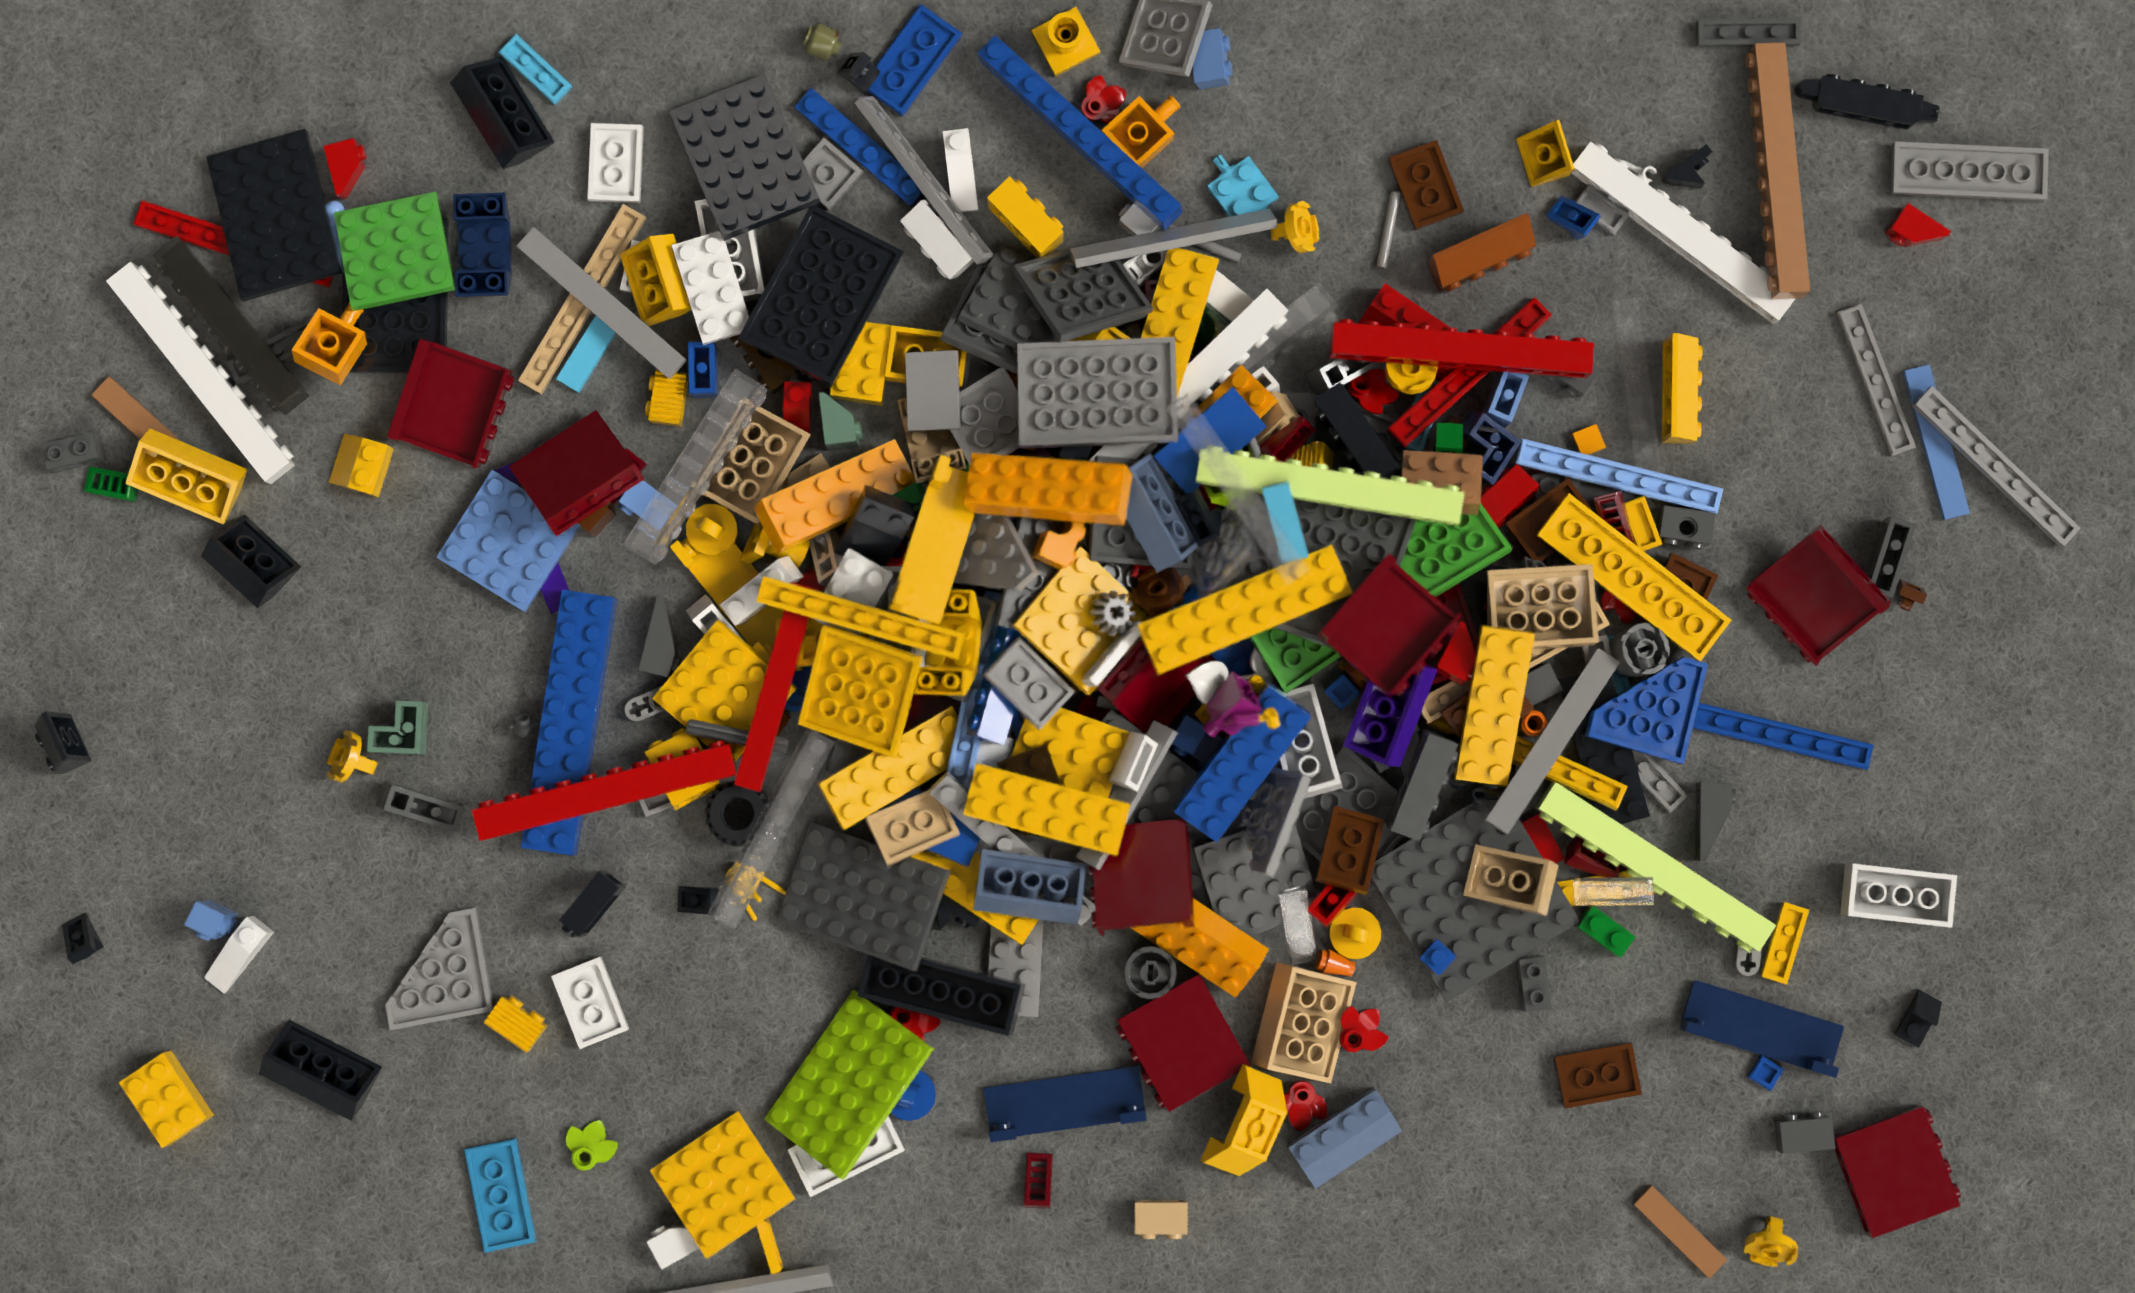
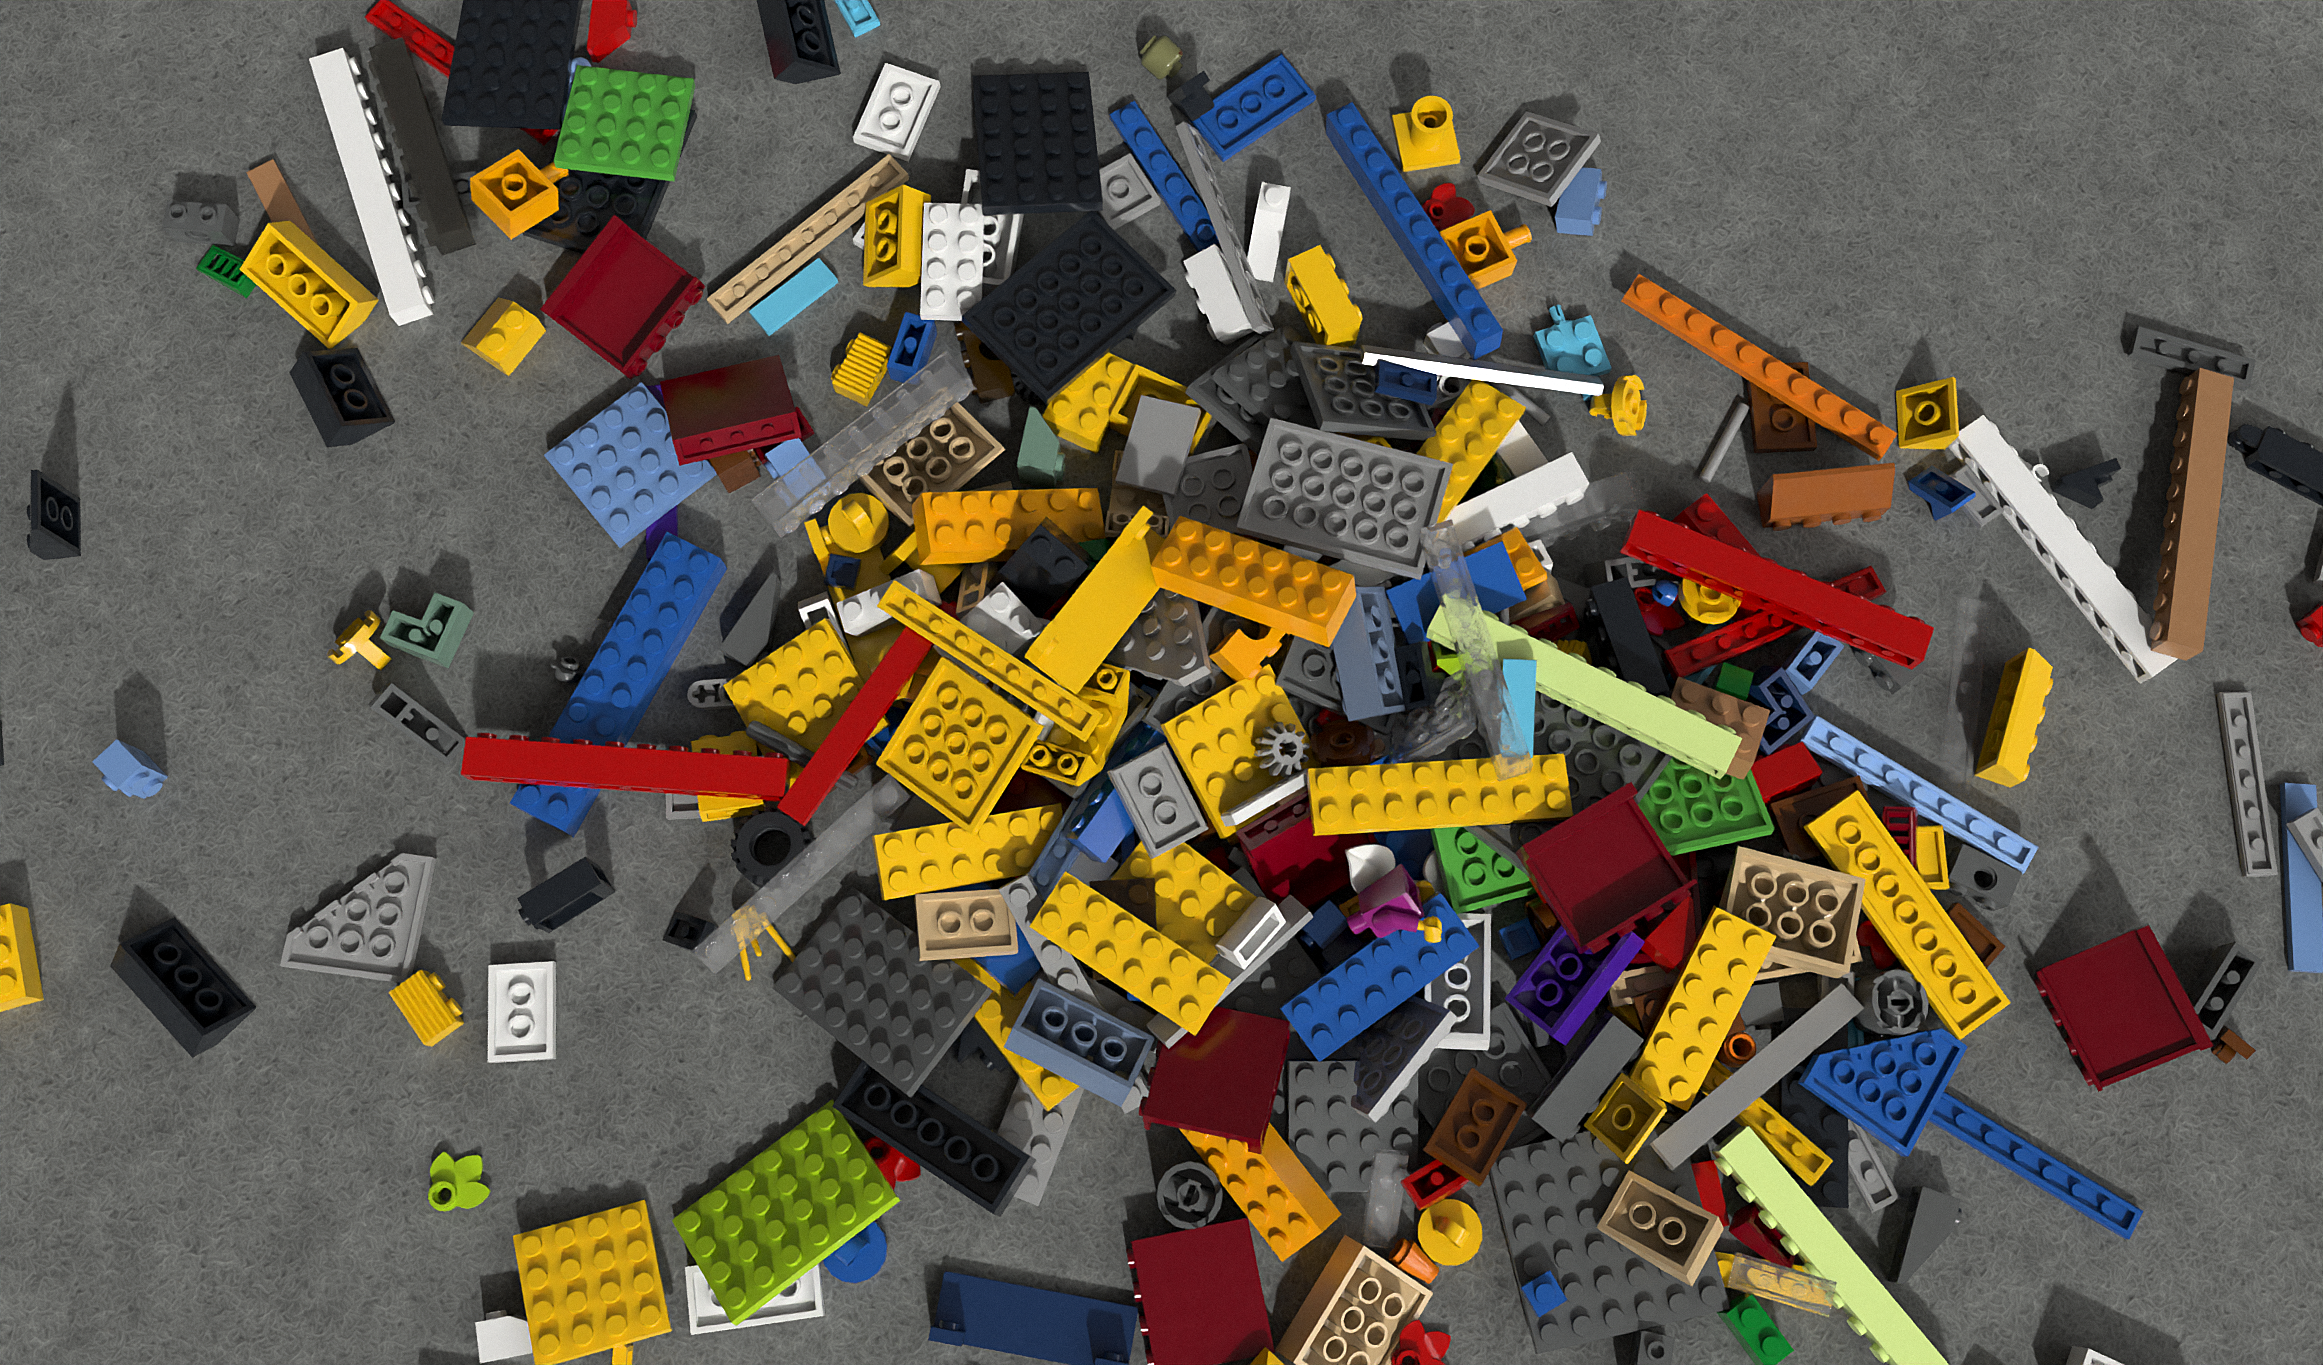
camera: 20 degrees right, 10 degrees down
(238, 953) = (148, 819): white slope -> none
(483, 244) = (724, 147): dark blue slope -> none
(500, 1195) = (329, 1207): dark azure tile -> none
(601, 303) = (828, 246): light grey tile -> none
(713, 574) = (842, 572): none -> dark blue tile
(798, 404) = (1004, 418): red slope -> none
(1115, 272) = (1405, 383): none -> dark blue plate
(1375, 376) = (1664, 592): none -> blue hinge
(1397, 158) = (1759, 367): none -> orange plate
(1461, 806) = (1626, 1117): none -> yellow slope
(1588, 440) = (1891, 743): light orange tile -> none

